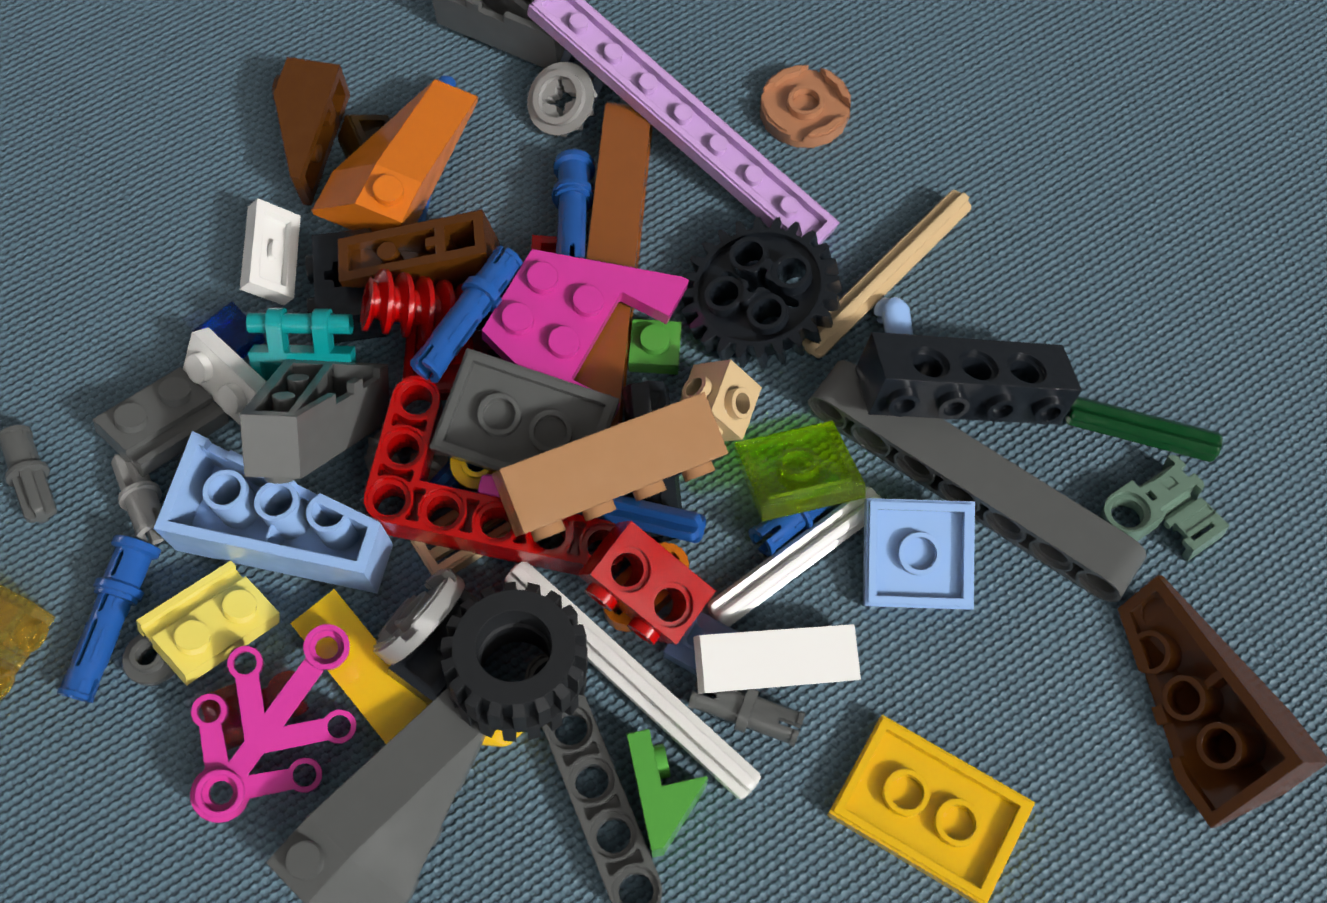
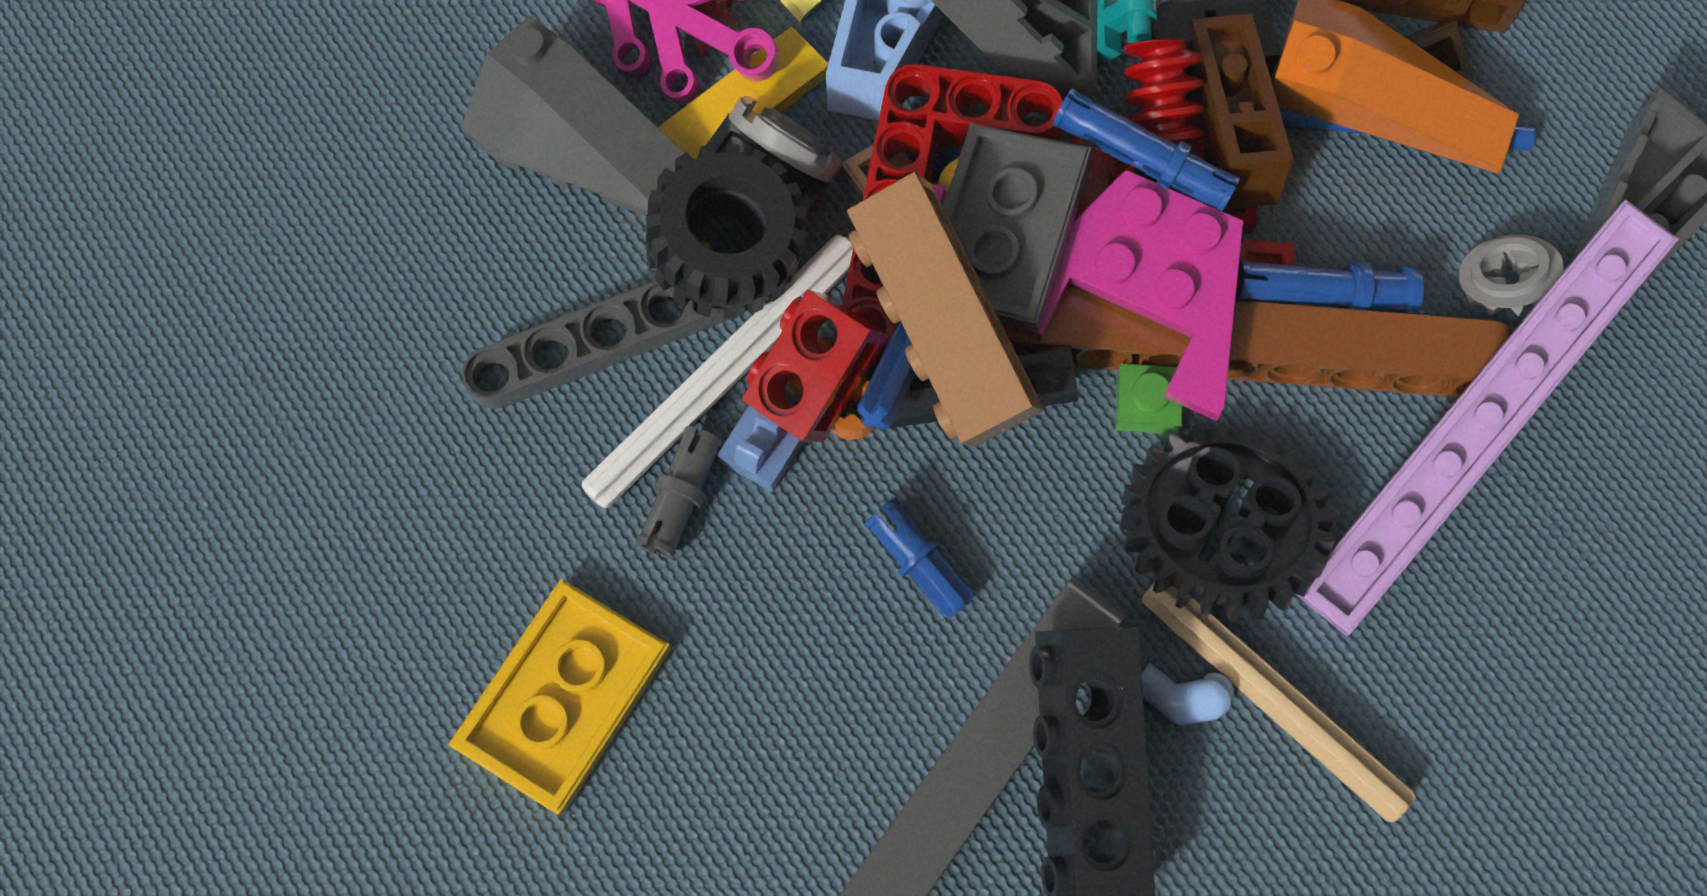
camera: 90 degrees right, 5 degrees up
(662, 806) = (575, 393): bright green slope -> none
(729, 393) = (1059, 460): tan brick -> none
(776, 658) = (731, 521): white tile -> none
(789, 561) = (868, 560): white axle -> none
(799, 470) = (971, 557): clear neon green tile -> none
(805, 106) = (1547, 602): nougat tile -> none
(919, 553) = (865, 700): light blue tile -> none

